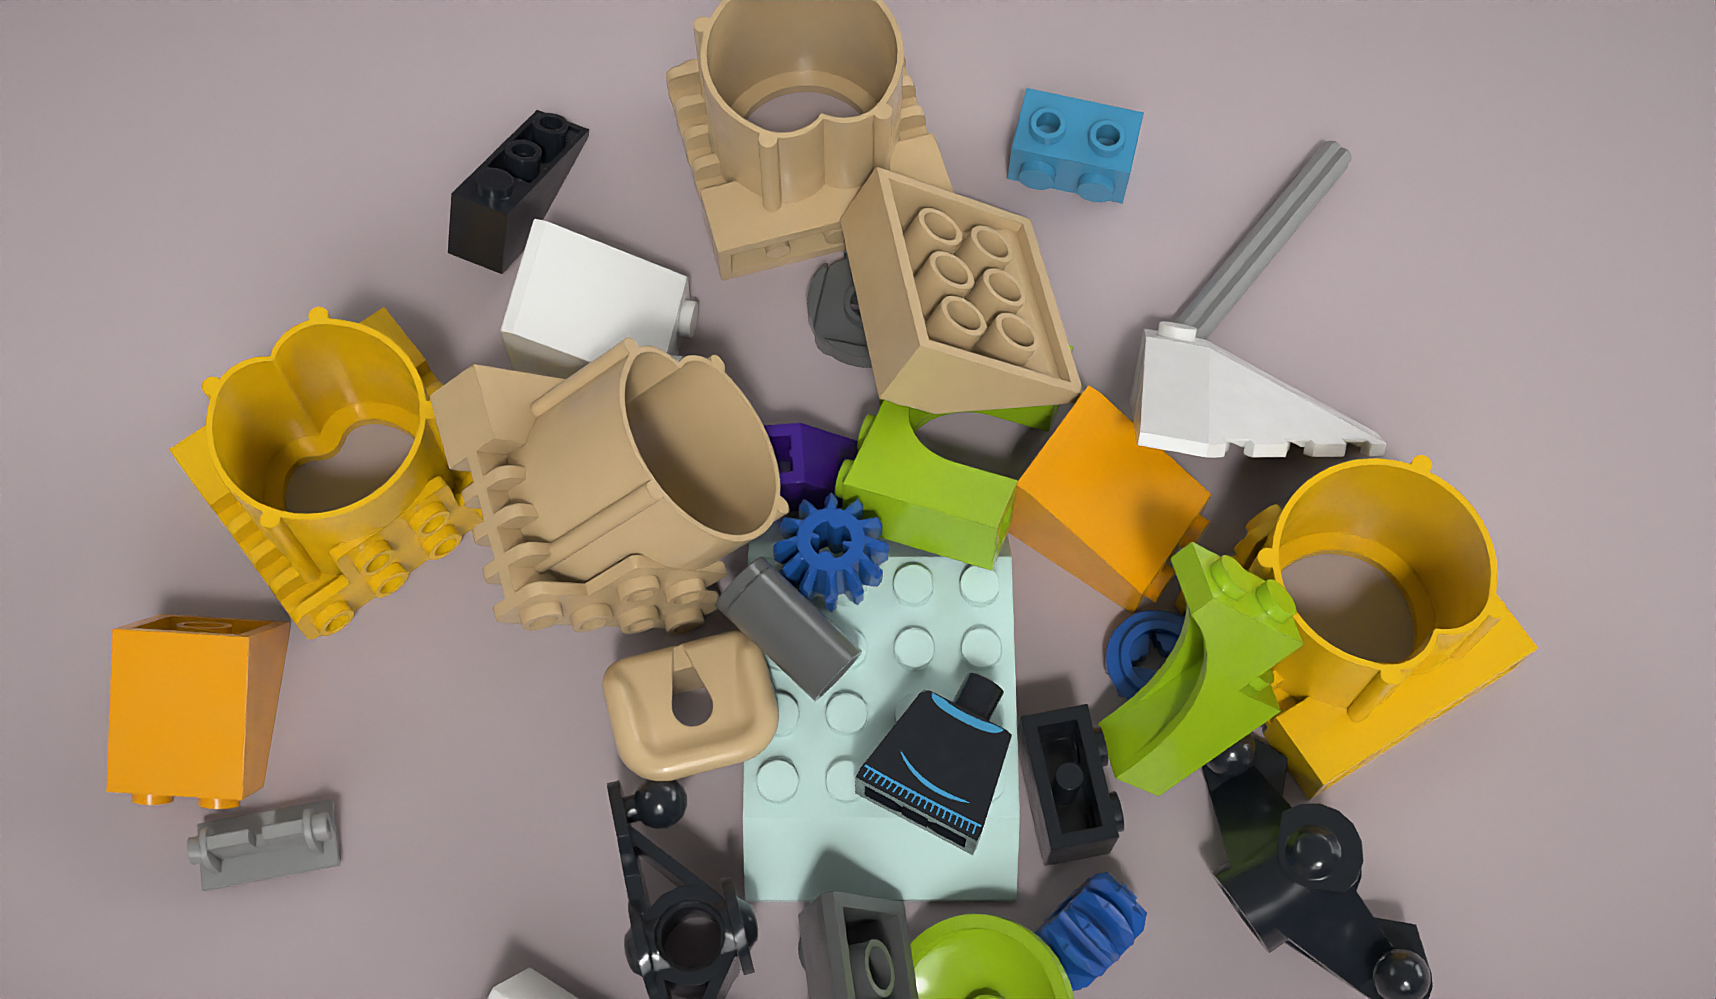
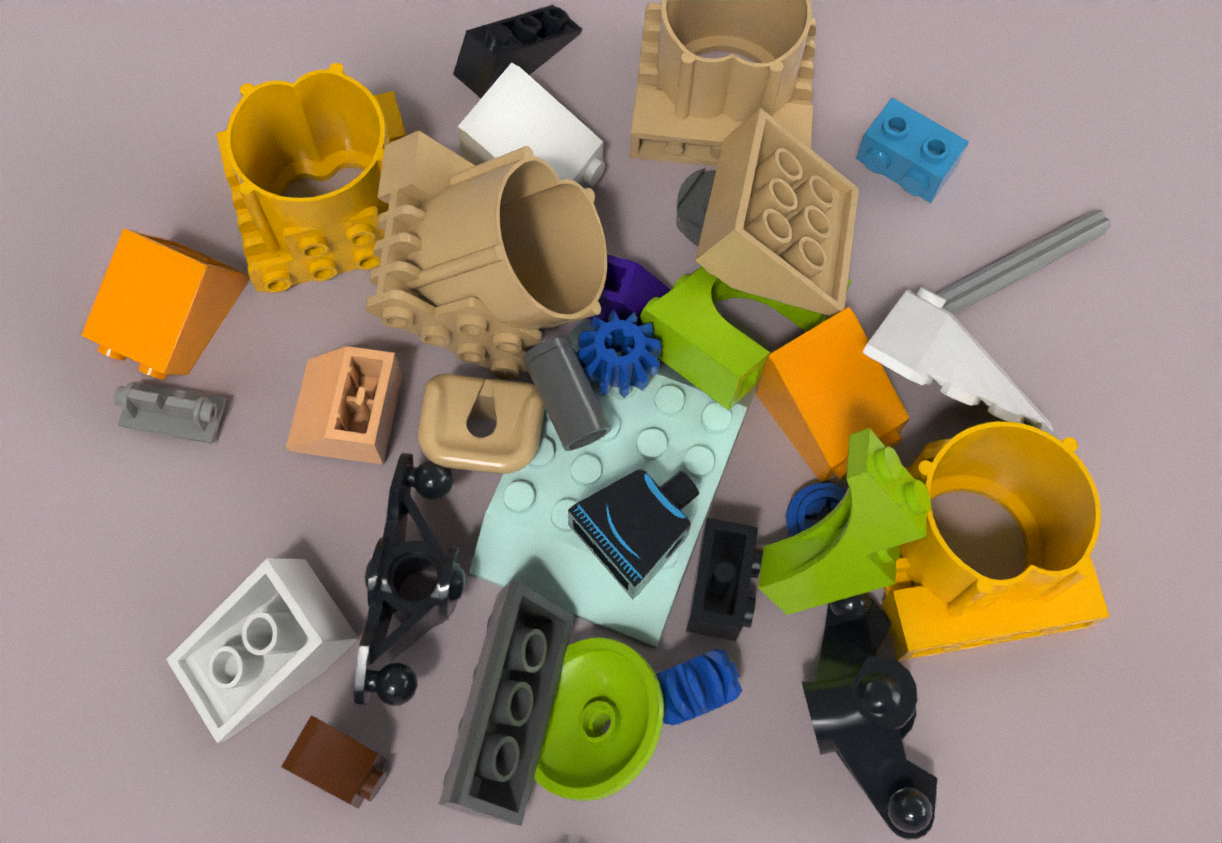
camera: 20 degrees right, 0 degrees up
(496, 748) = (347, 405): none -> light nougat slope

